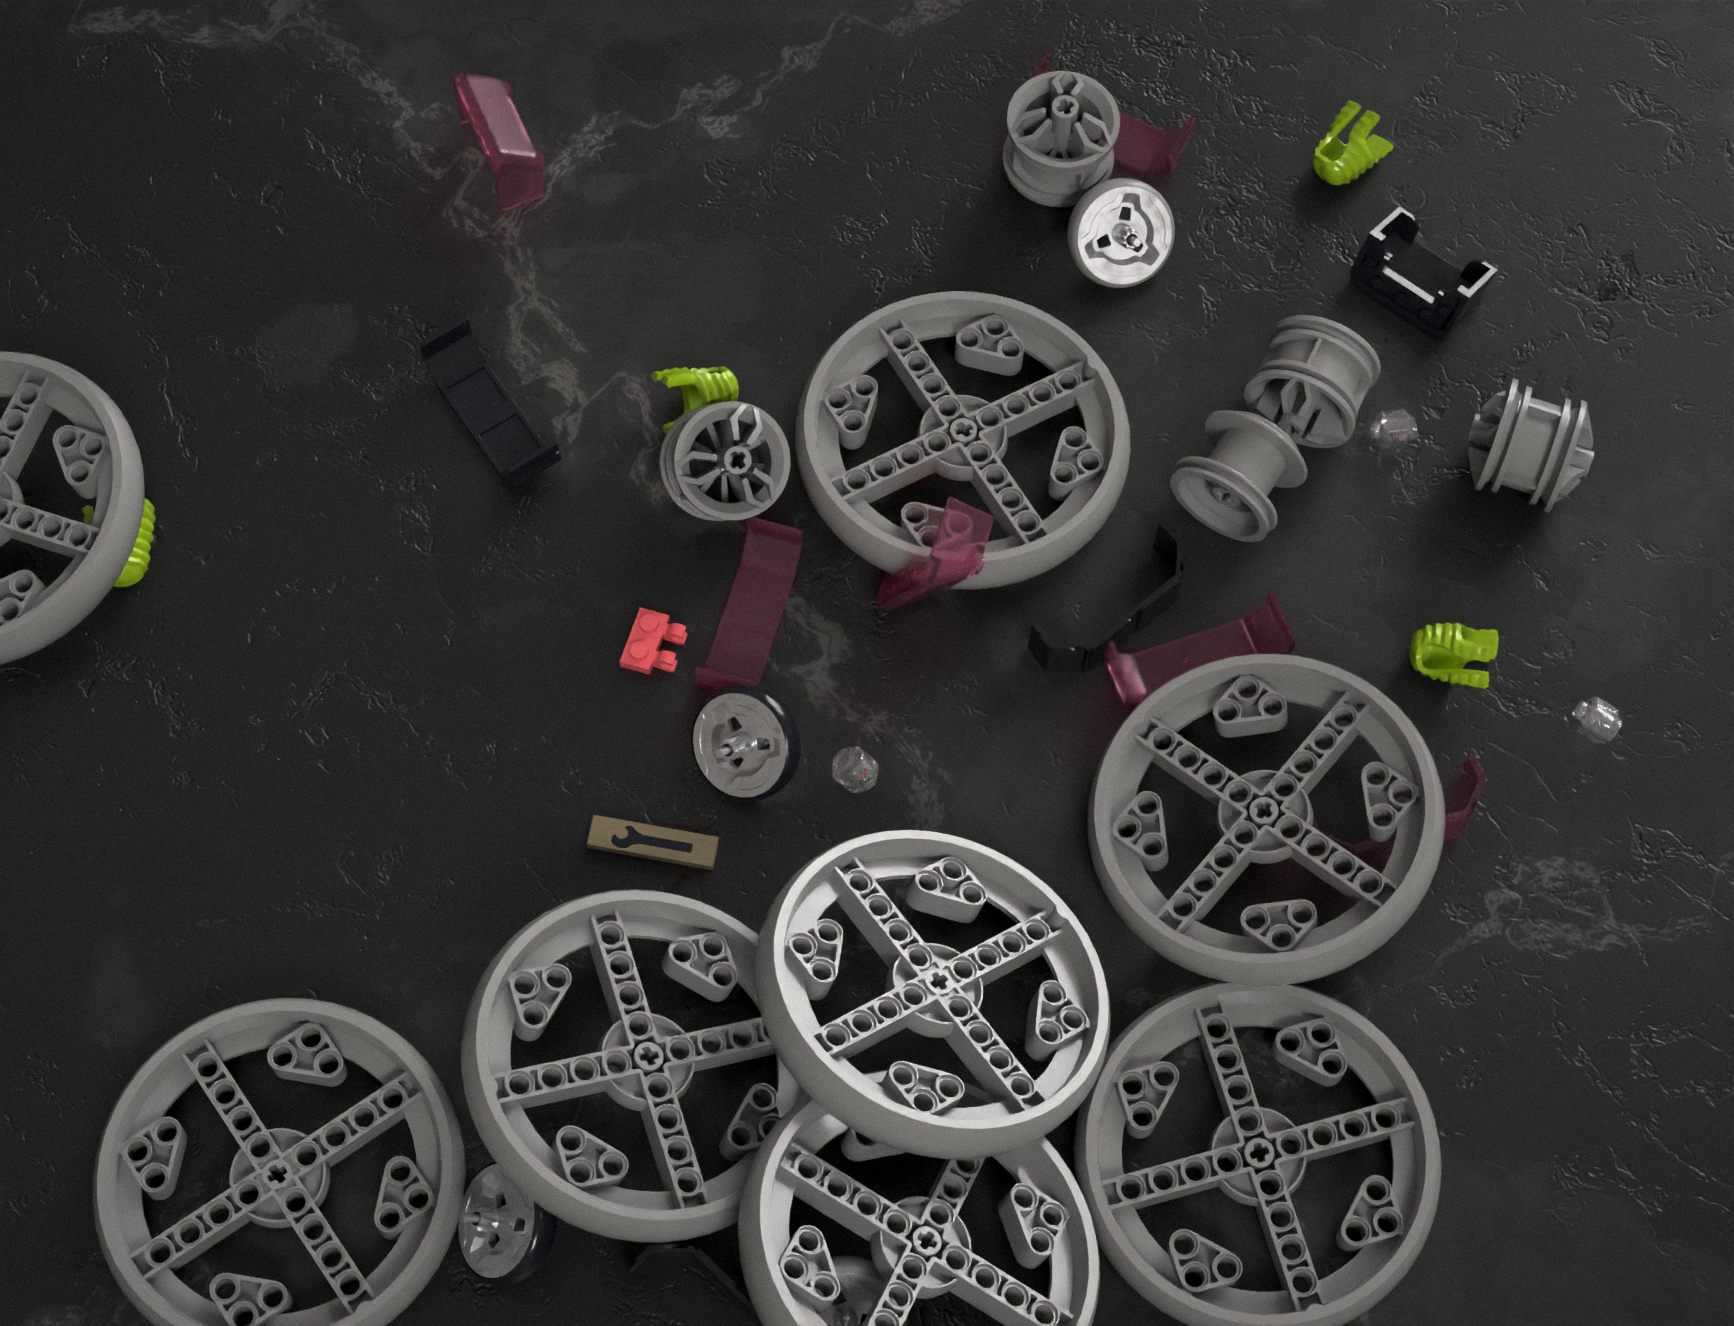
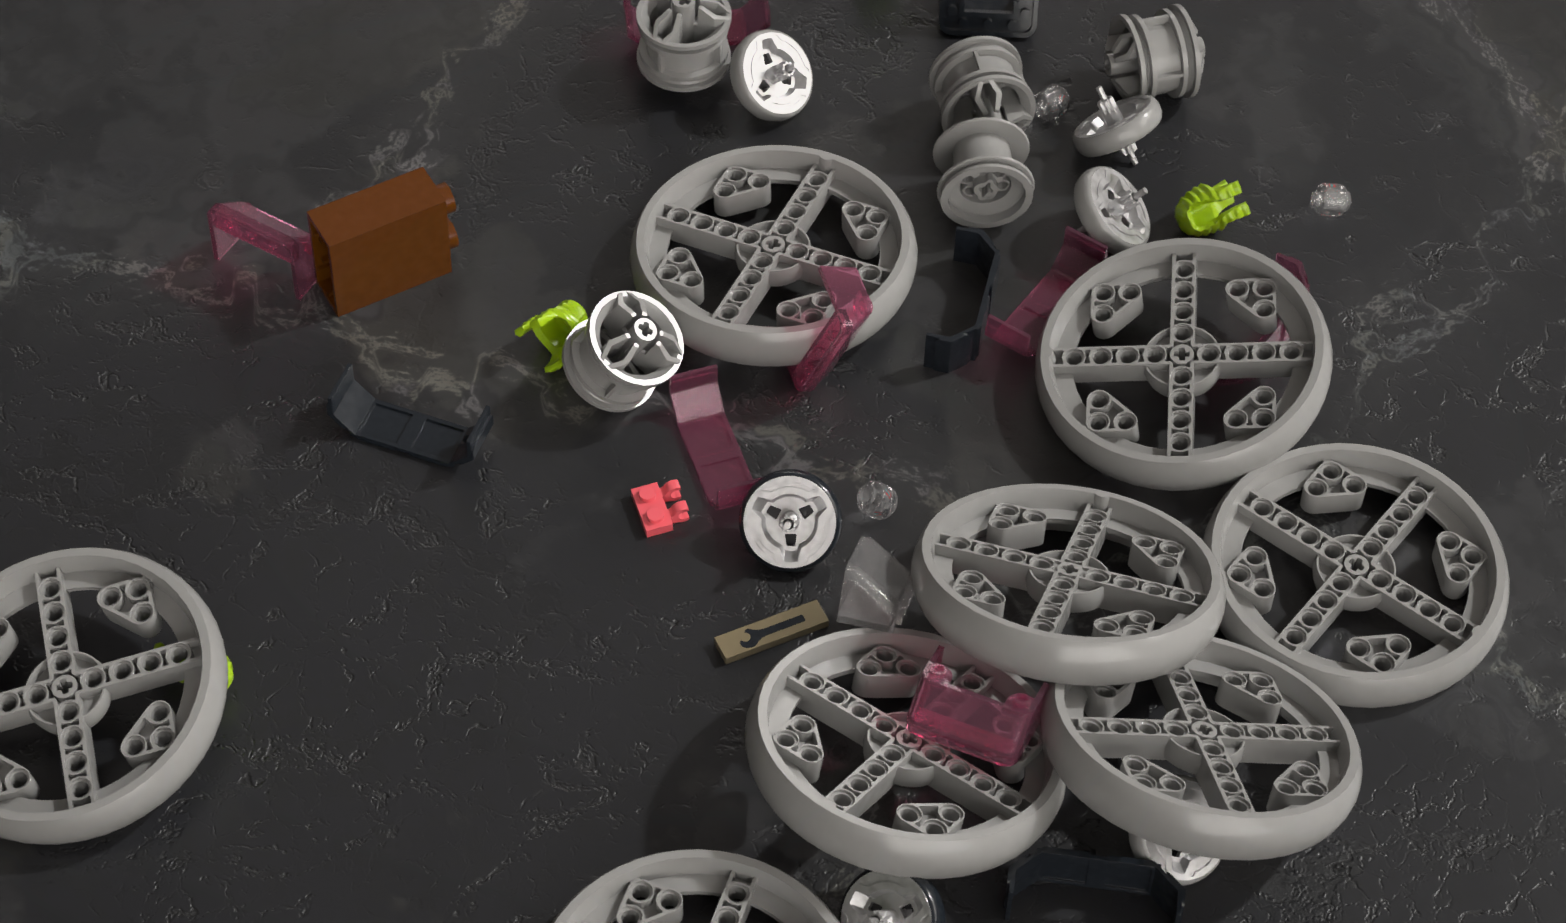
camera: 35 degrees left, 15 degrees down
(596, 201) = (382, 240): none -> reddish brown brick
(703, 1084) = (970, 720): none -> clear pink windscreen
(753, 867) = (874, 588): none -> clear windscreen
(1323, 596) = (1111, 209): none -> flat silver wheel
(1428, 502) = (1117, 125): none -> wheel

